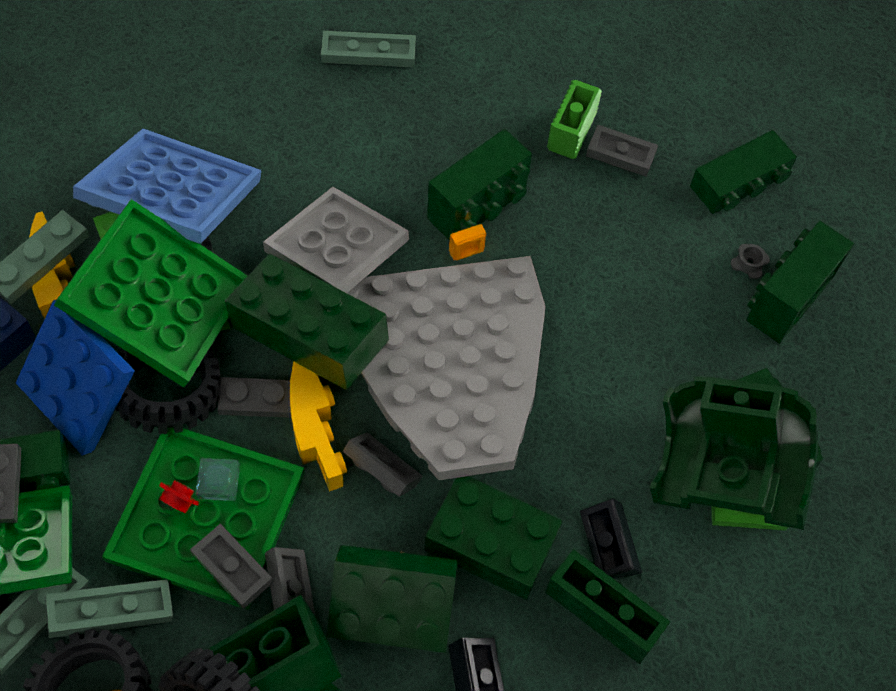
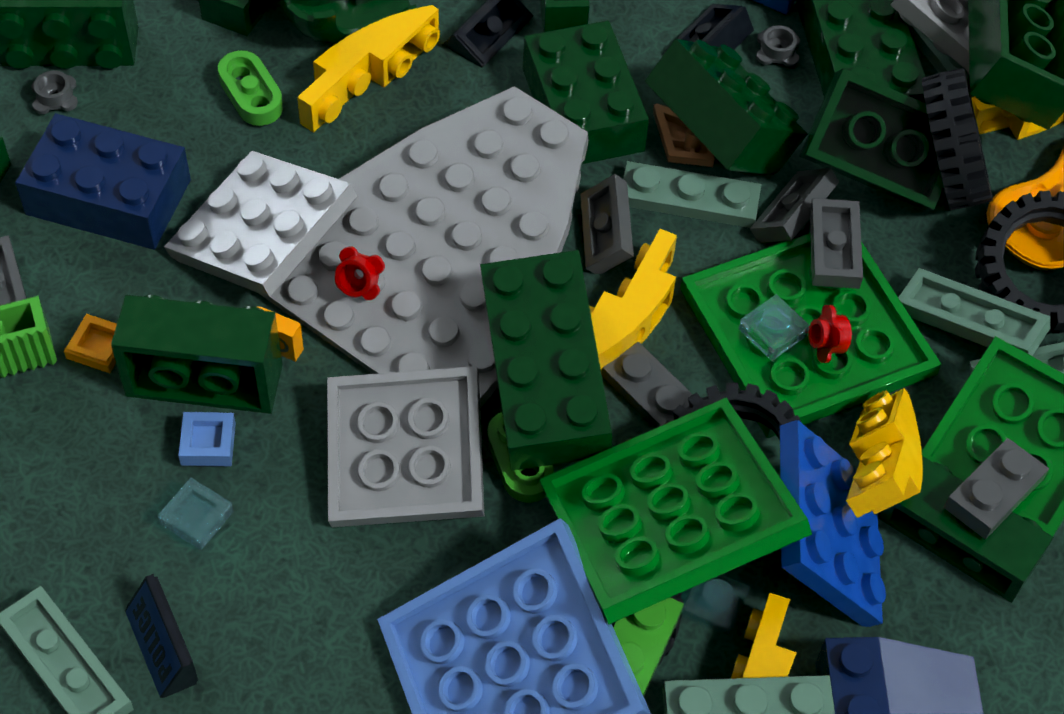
camera: 130 degrees left, 5 degrees down
(80, 455) = (888, 454): none -> yellow slope
(341, 91) = (160, 639): none -> slope
(374, 531) = (692, 194): none -> sand green plate
(395, 142) = (195, 513): none -> clear light blue plate
(428, 169) = (207, 439): none -> medium blue plate
(457, 285) = (350, 282): none -> red plate
(545, 173) = (93, 344): none -> light orange tile
(547, 280) = (261, 222): none -> light grey plate
(635, 434) = (372, 53): none -> yellow slope
(650, 232) = (104, 181): none -> dark blue brick
(667, 356) = (252, 90): none -> bright green plate

